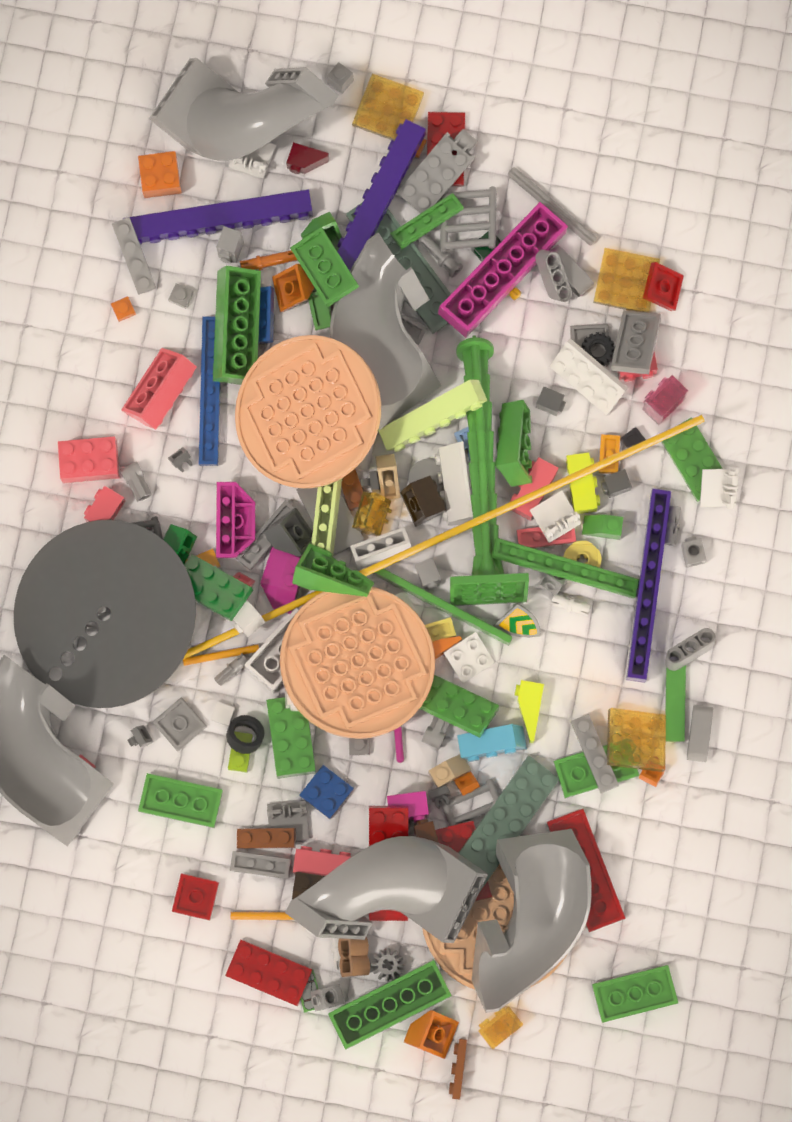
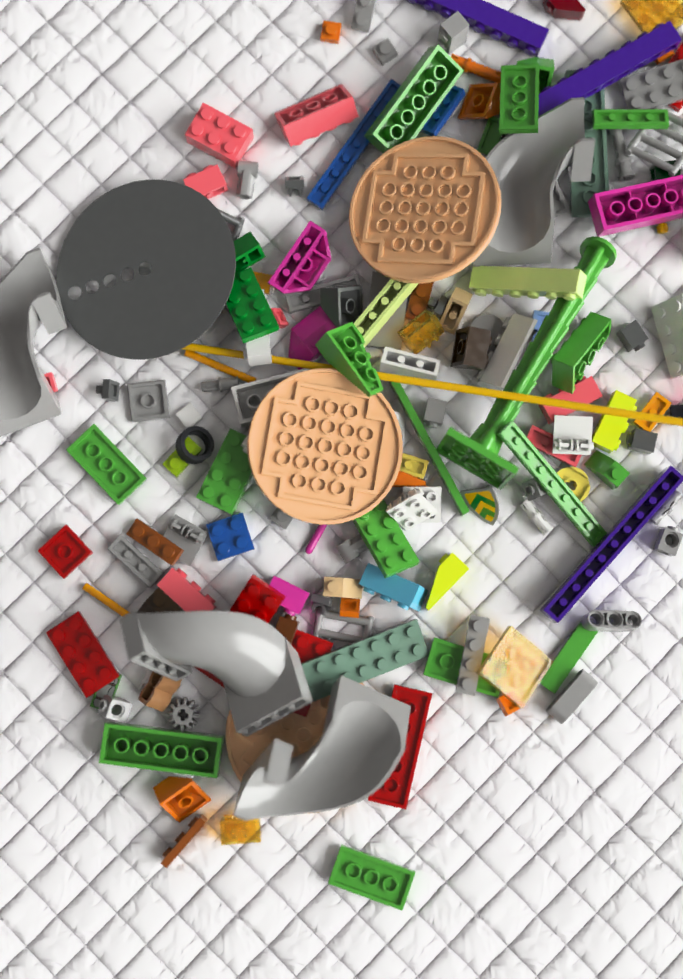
camera: 30 degrees right, 5 degrees up
(464, 666) = (412, 509): none -> white hinge

